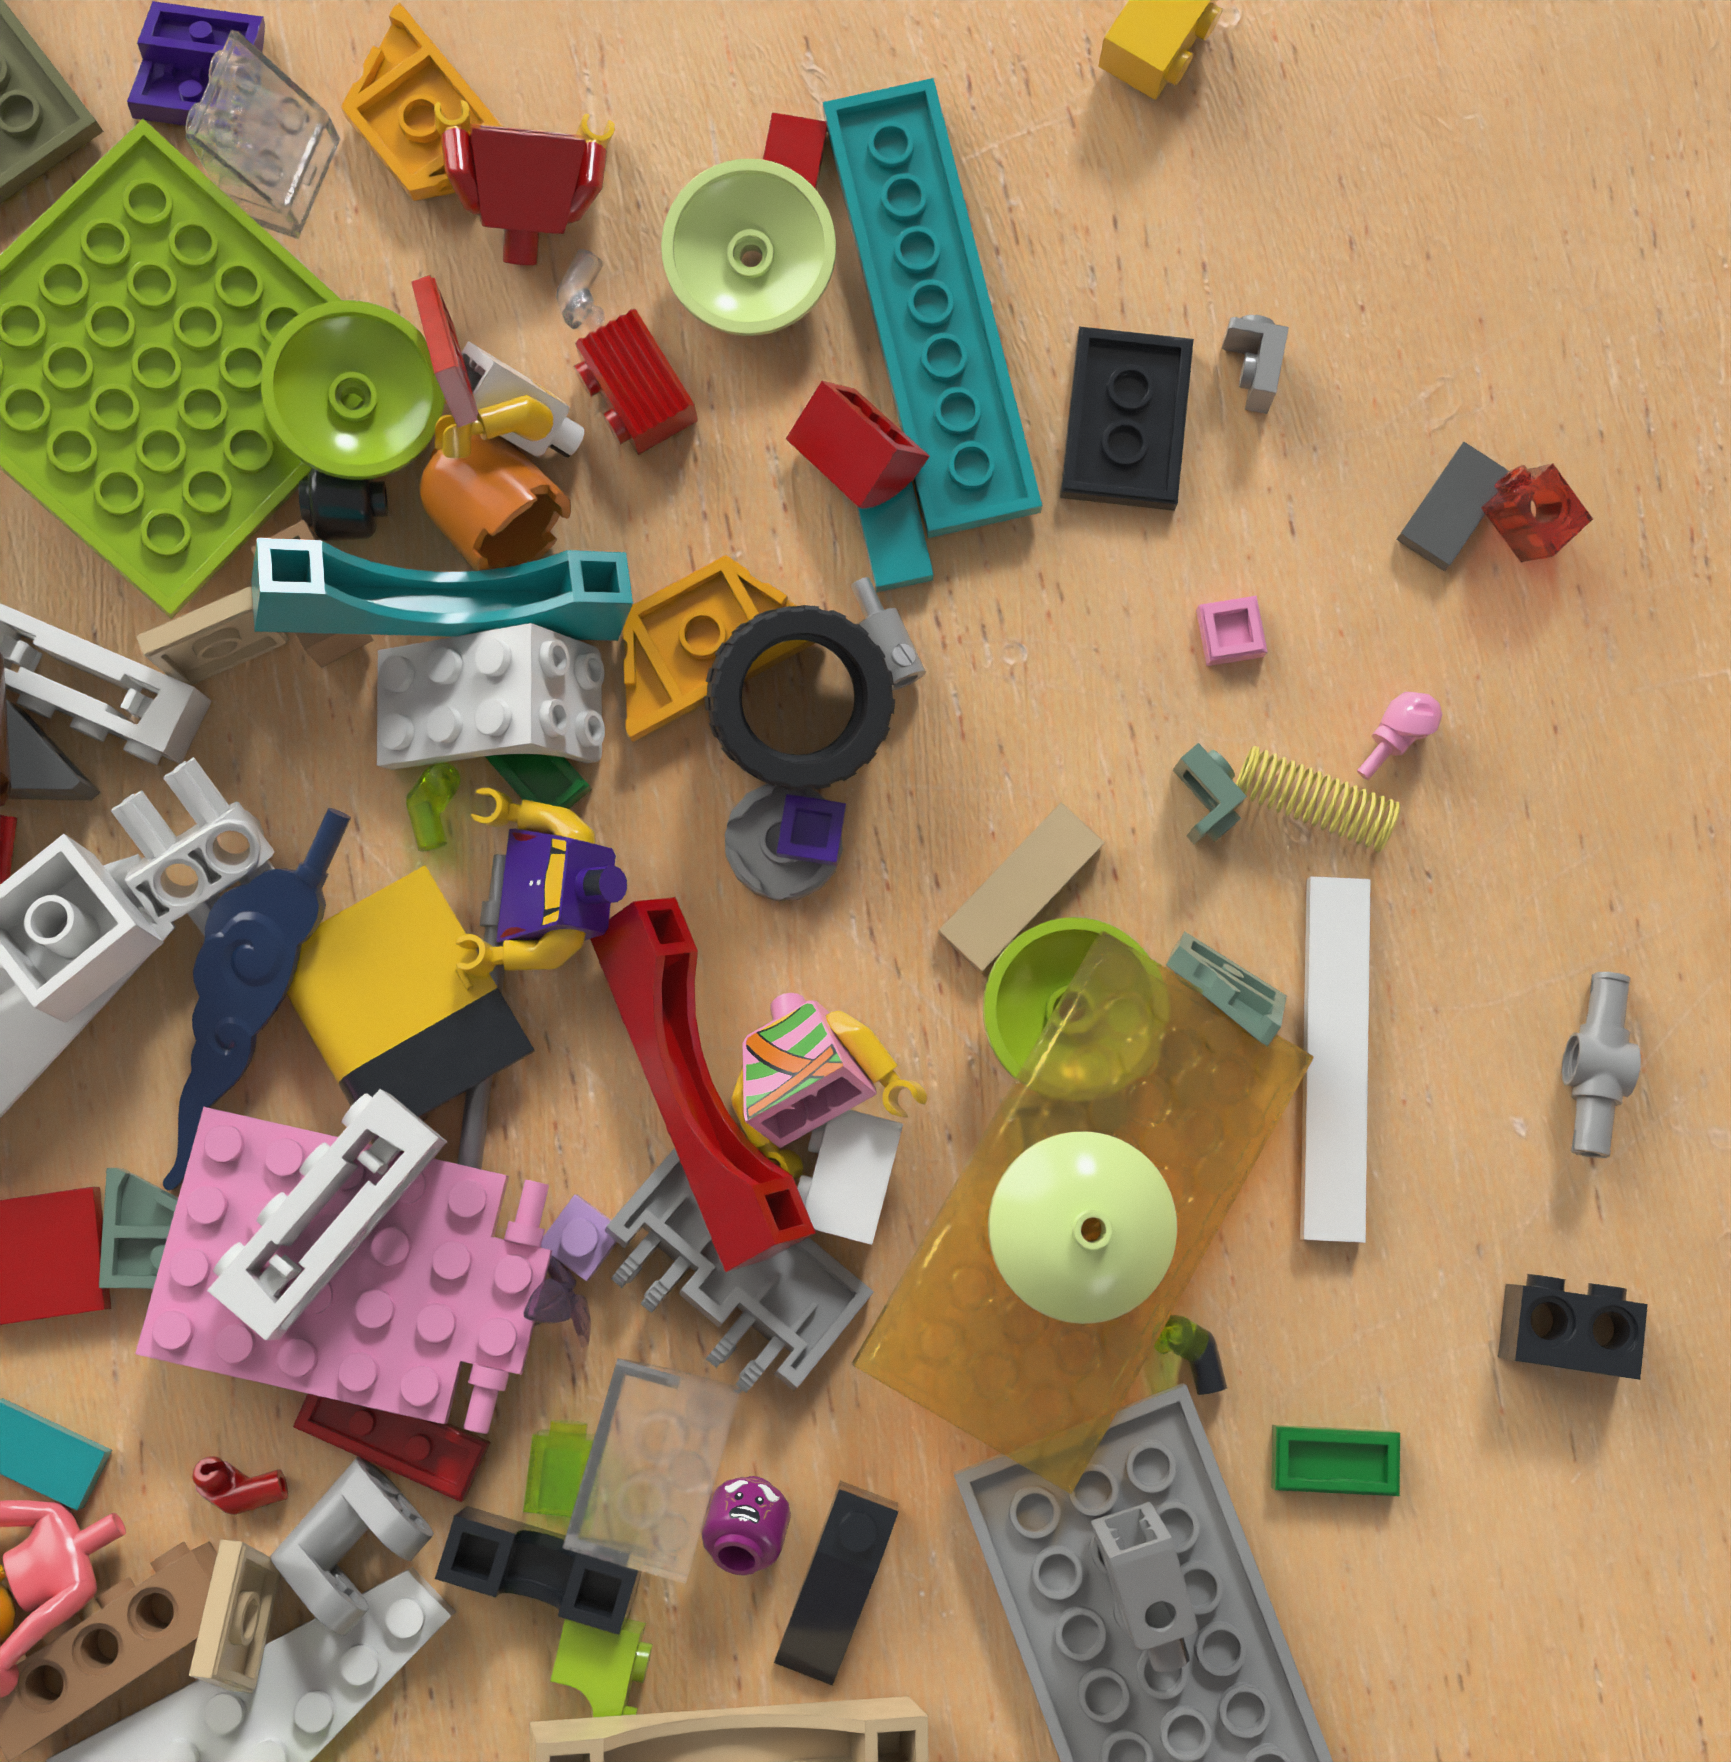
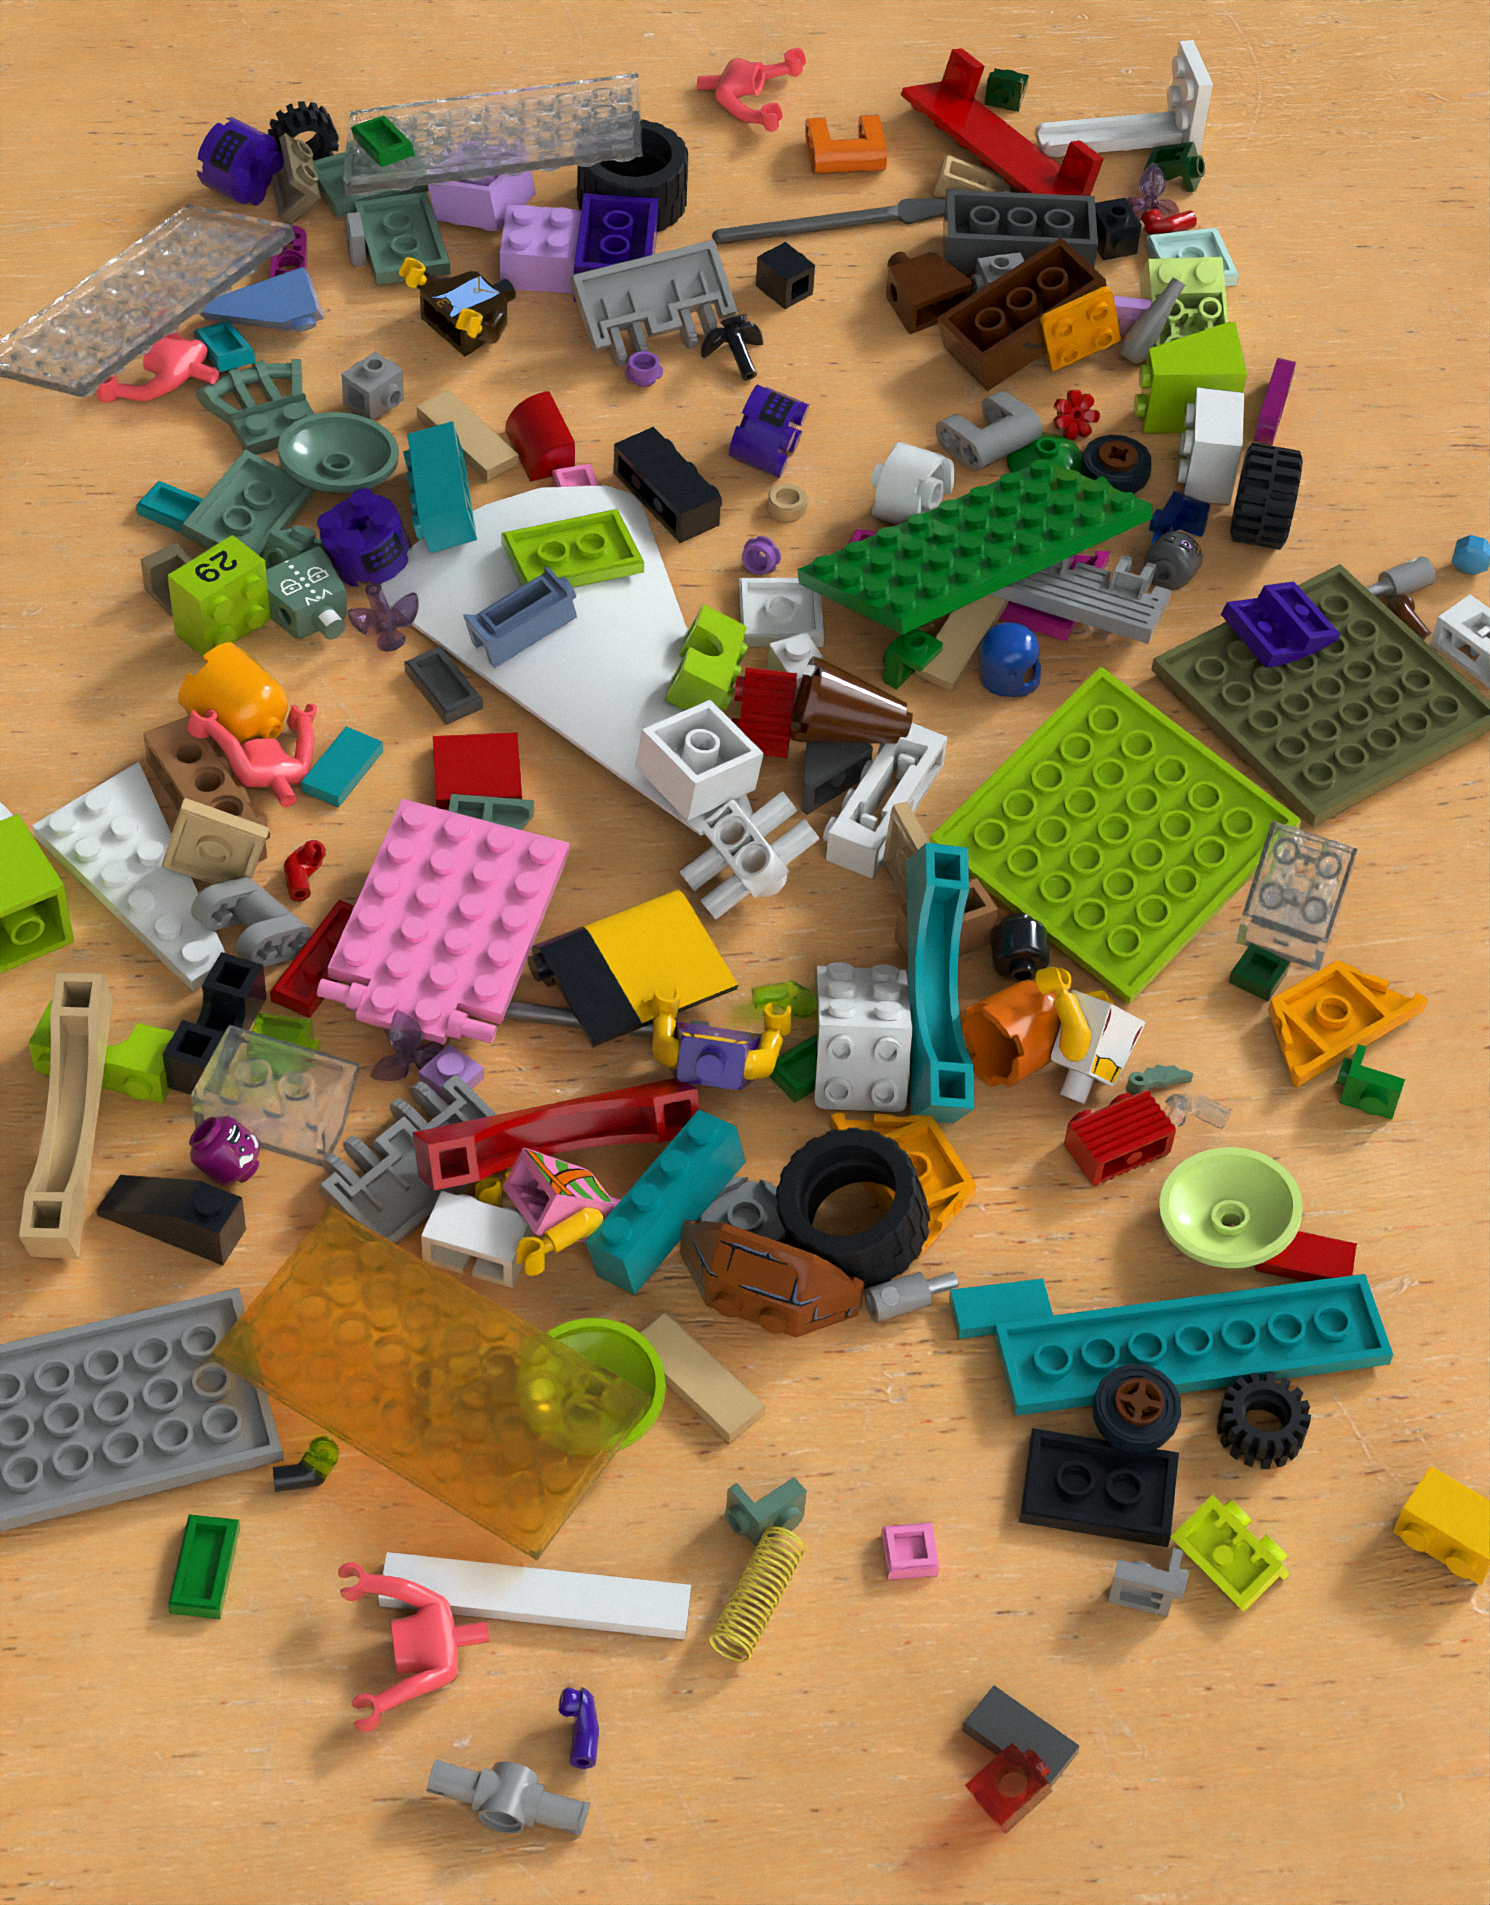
camera: 90 degrees right, 30 degrees down
(177, 56) = (1380, 885): dark purple slope -> none
(246, 972) = (672, 874): dark blue piece -> none
(257, 1295) = (484, 895): white brick -> none
(351, 351) = (1104, 916): lime dish -> none
(359, 205) = (1259, 972): none -> dark green plate
(445, 351) = (1128, 988): tile -> none
(523, 177) = (1283, 1068): red torso -> none
(530, 340) = (1156, 1077): none -> sand green piece
(546, 80) = (1368, 1088): none -> green bracket
(787, 935) = (673, 1189): none -> teal brick
(811, 830) = (751, 1214): dark purple plate -> none
(855, 445) = (1067, 1276): red brick -> none
(891, 813) = (767, 1279): none -> dark orange wedge
(1036, 199) = (1271, 1398): none -> black tyre
(1040, 1217) = (420, 1384): yellowish green dish -> none
(1058, 354) = (1150, 1397): none -> black wheel
(1147, 1584) = (136, 1385): light grey torso -> none
(1207, 270) = (1229, 1552): none -> neon yellow bracket
(1230, 987) = (599, 1505): sand green wing -> none
(1405, 720) = (824, 1671): bright pink piece -> none
(1420, 1184) = (421, 1643): none -> coral piece
(1488, 989) = (585, 1729): none -> dark purple arm
(1571, 1337) = (275, 1746): black brick -> none

